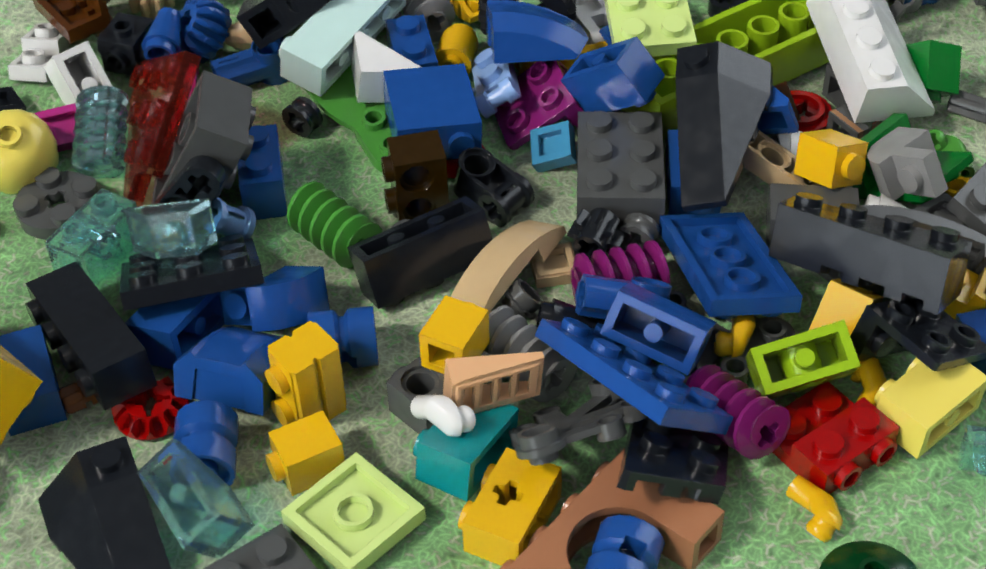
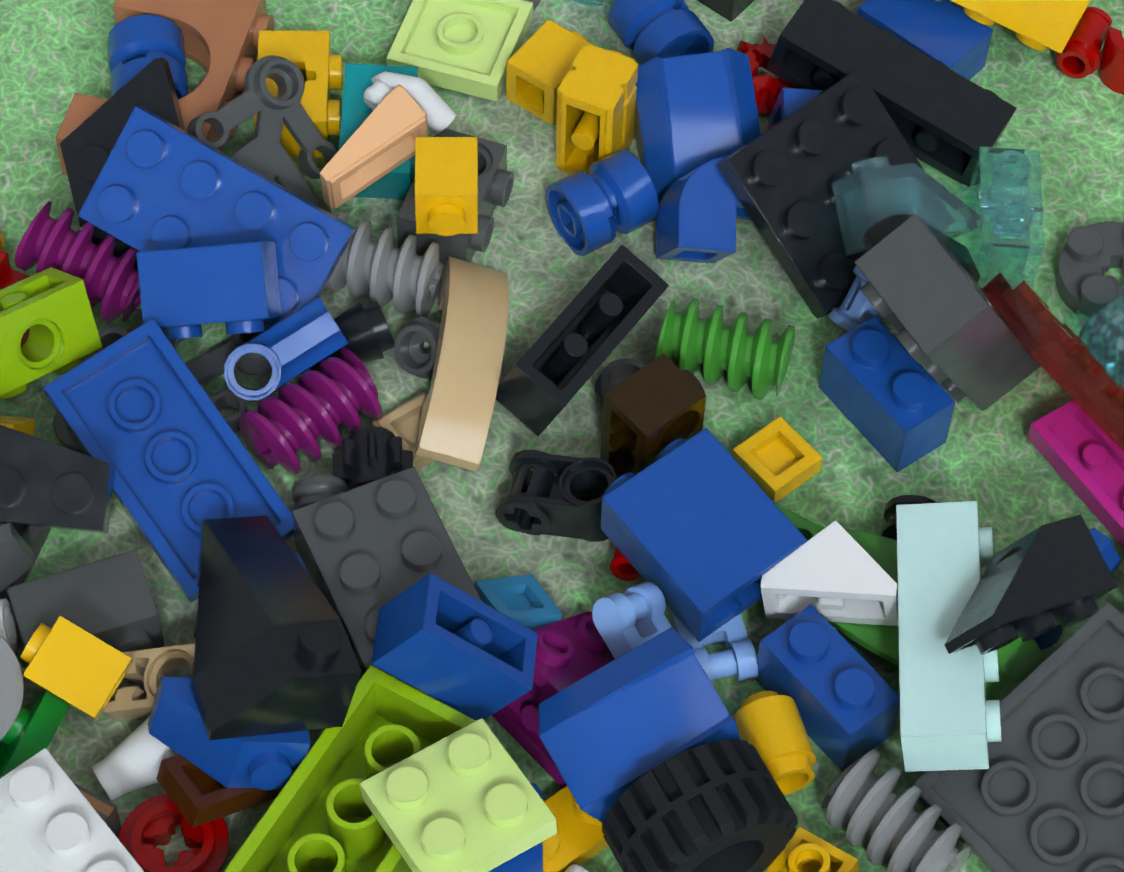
camera: 150 degrees right, 10 degrees up
(350, 171) = (778, 459): none -> yellow plate

